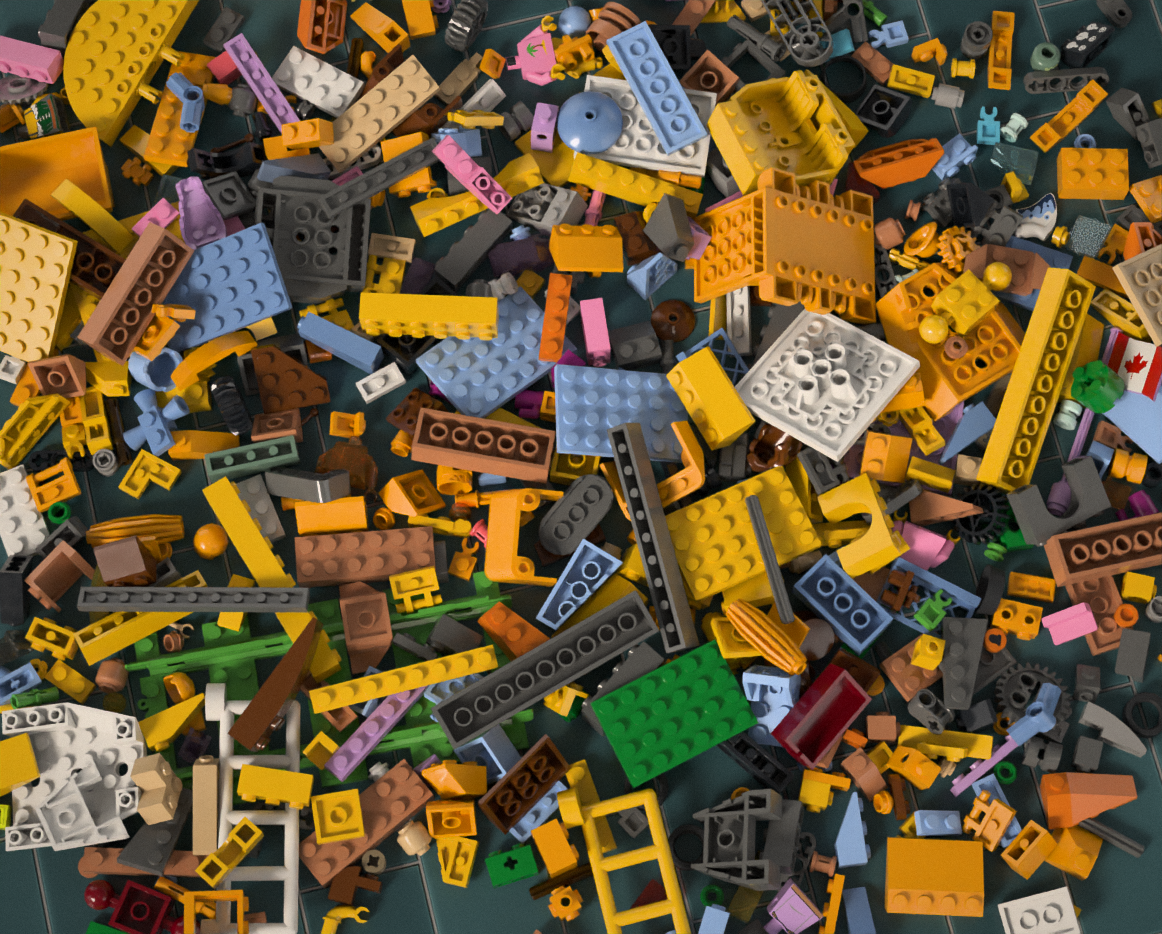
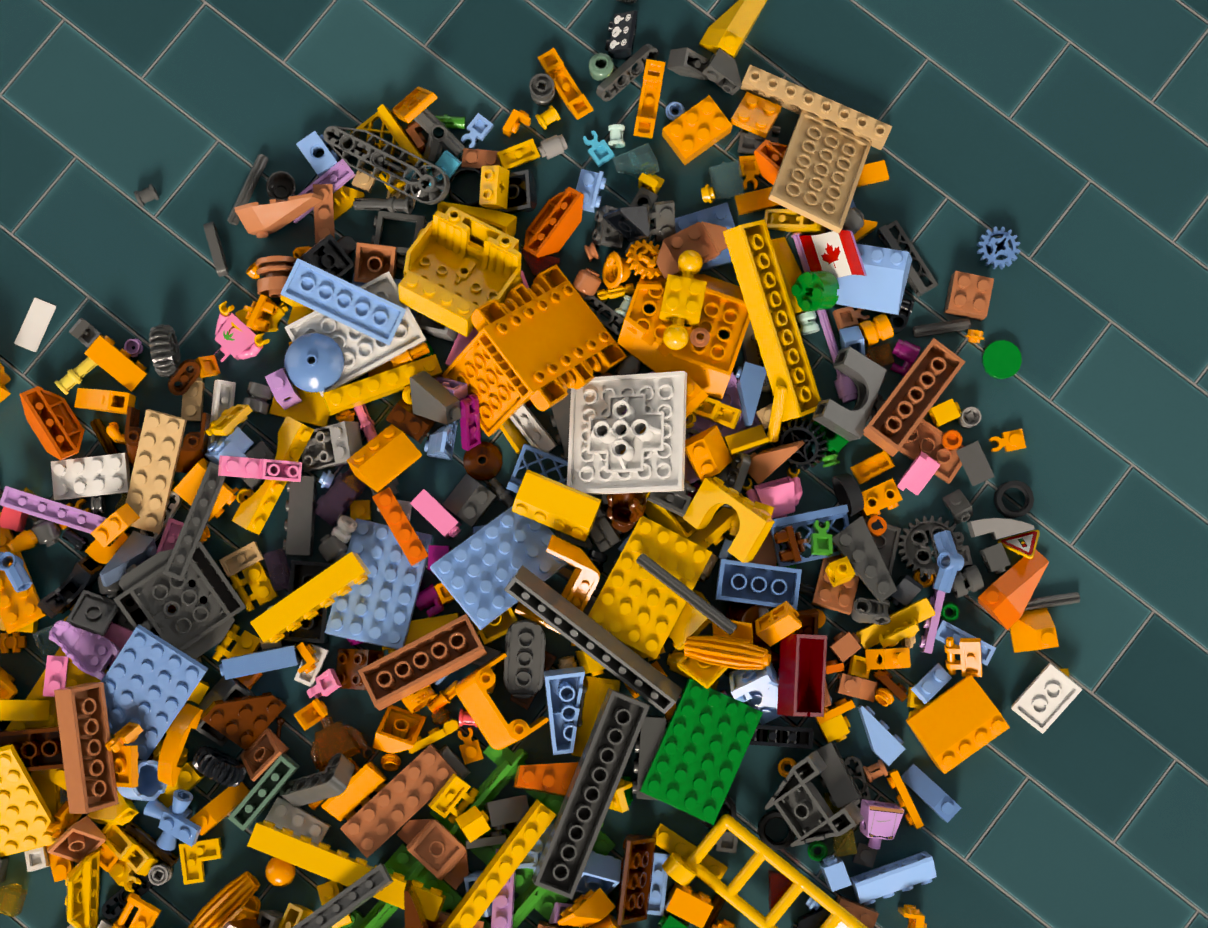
camera: 35 degrees left, 10 degrees up
(64, 346) = (63, 821): none -> light orange plate
(248, 138) = (72, 555): reddish brown hinge -> none
(381, 407) = (326, 684): none -> bright pink plate
(387, 366) = (308, 653): none -> light orange bracket
(402, 444) = (361, 698): light orange cone -> none
(416, 622) = (473, 823): none -> yellow brick
(466, 56) = (186, 377): none -> reddish brown plate
(574, 22) = (242, 289): light blue hair -> none
(607, 585) = (579, 722): none -> dark grey hinge
(688, 274) = (470, 422): none -> magenta plate
(833, 650) = (777, 623): none -> light orange hinge
(867, 91) = (494, 187): none -> yellow brick
(976, 466) = (777, 413): none -> yellow axle
(1029, 849) = (1005, 655): light orange brick -> none
(1038, 219) = (682, 191): white arm -> none
(1122, 761) = (1022, 544): none -> piece

